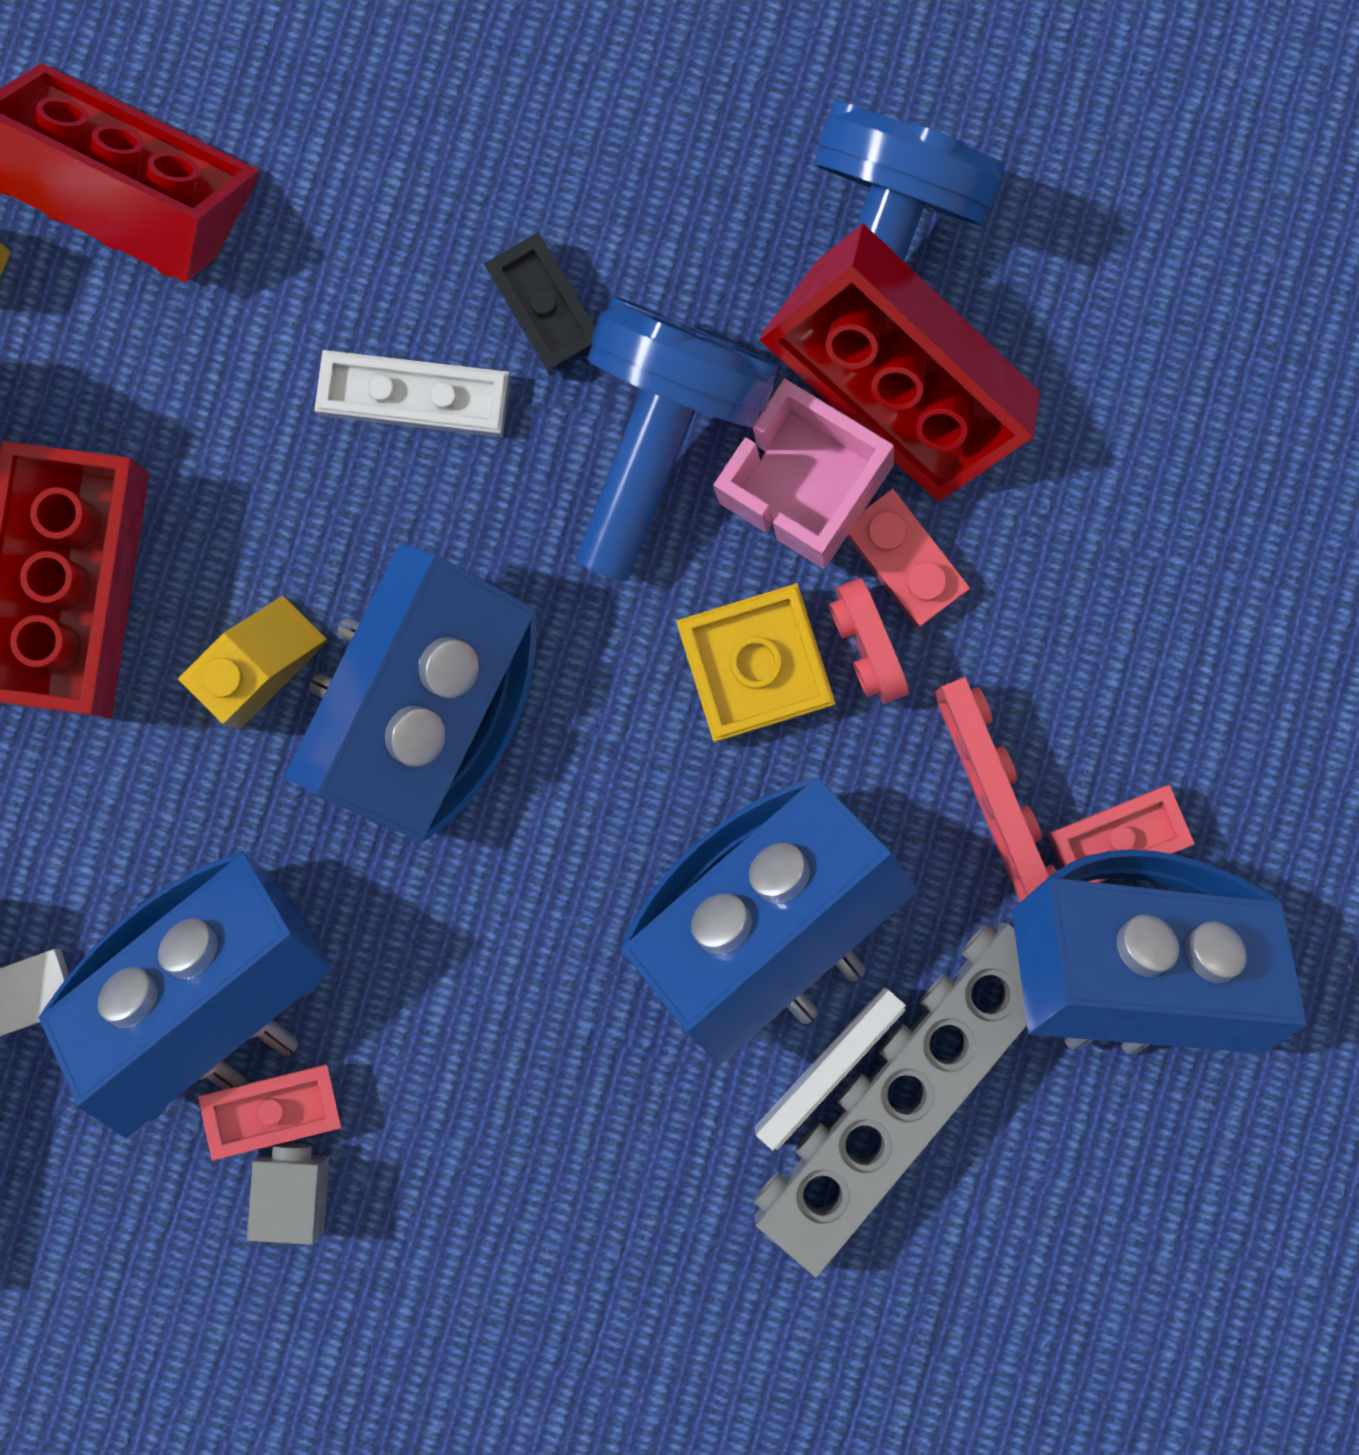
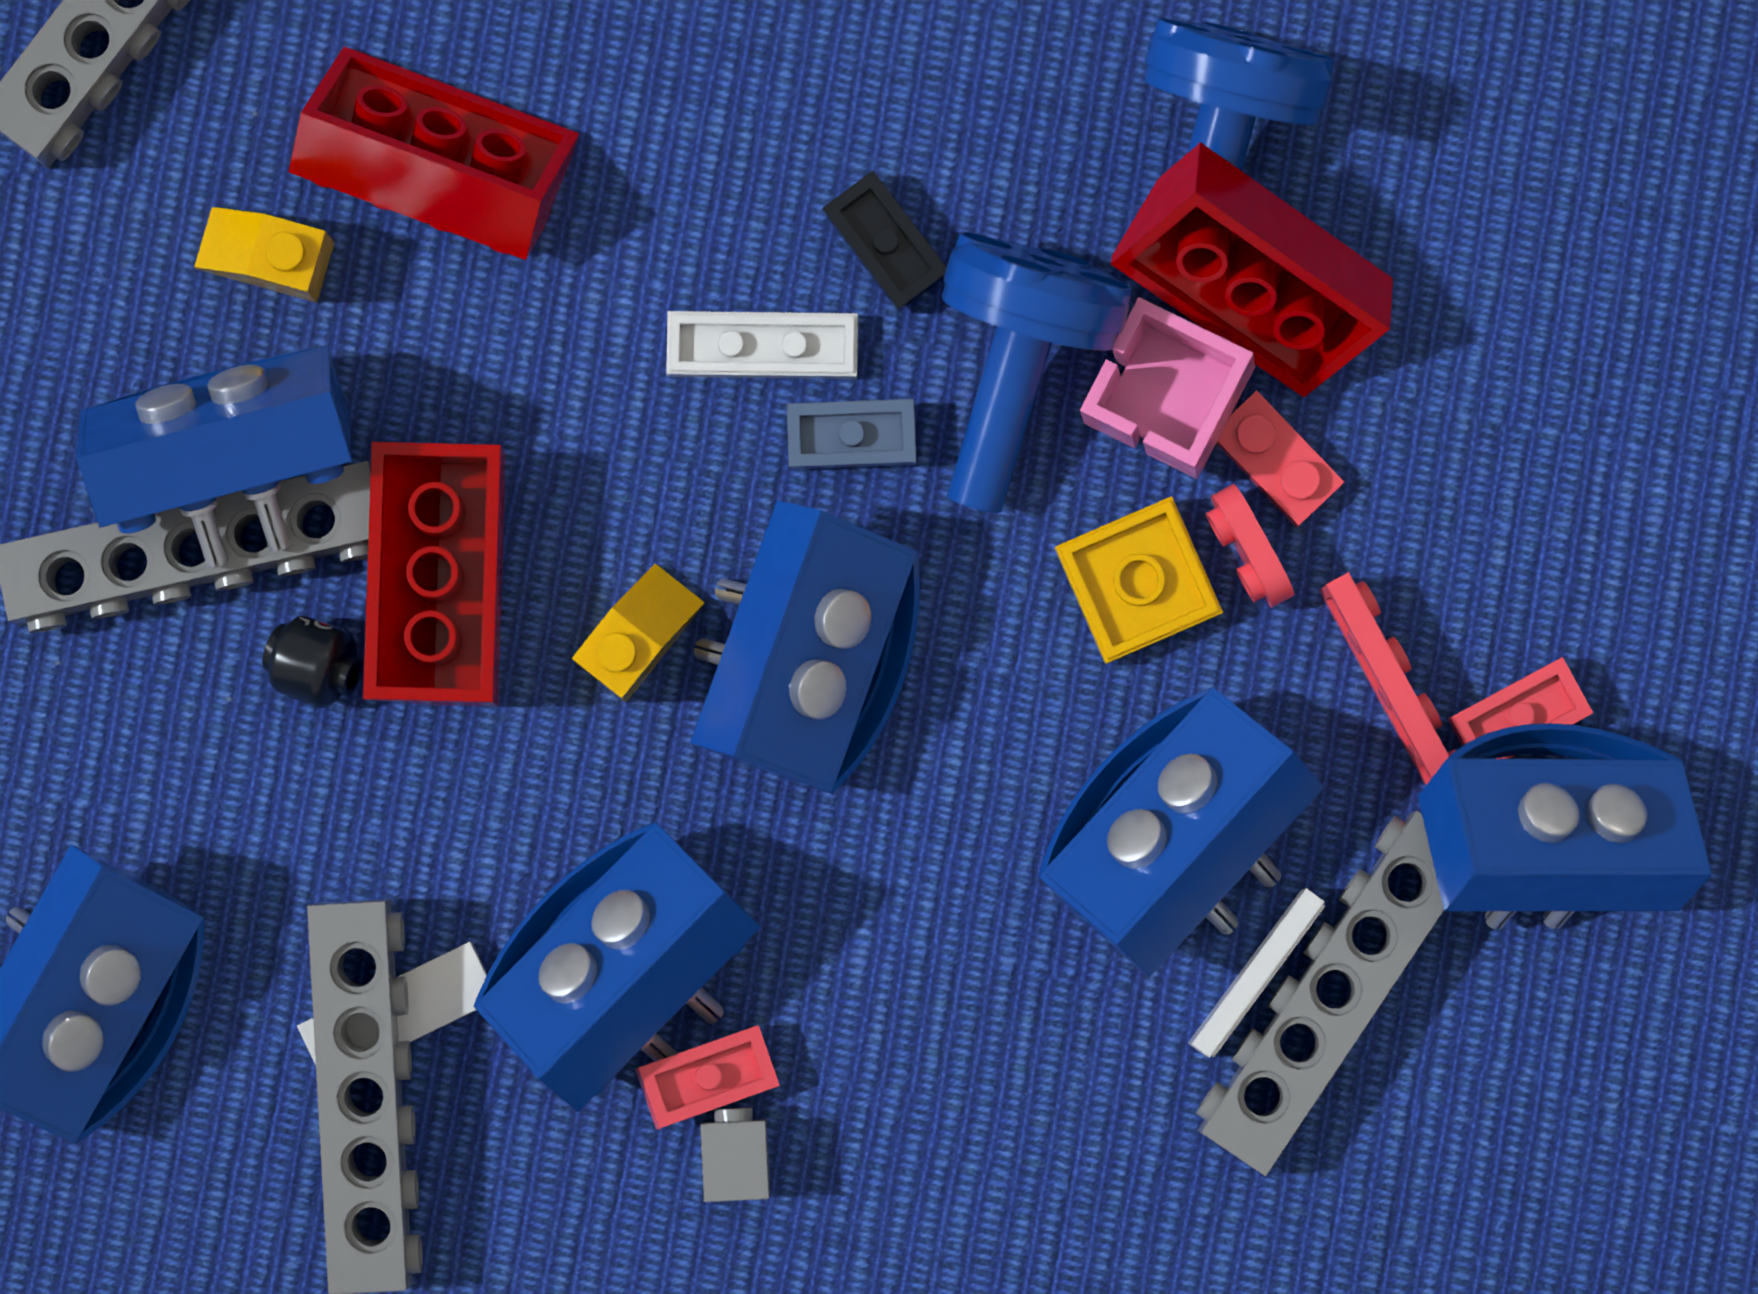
camera: 10 degrees left, 0 degrees up
(488, 488) = (851, 434): none -> sand blue plate

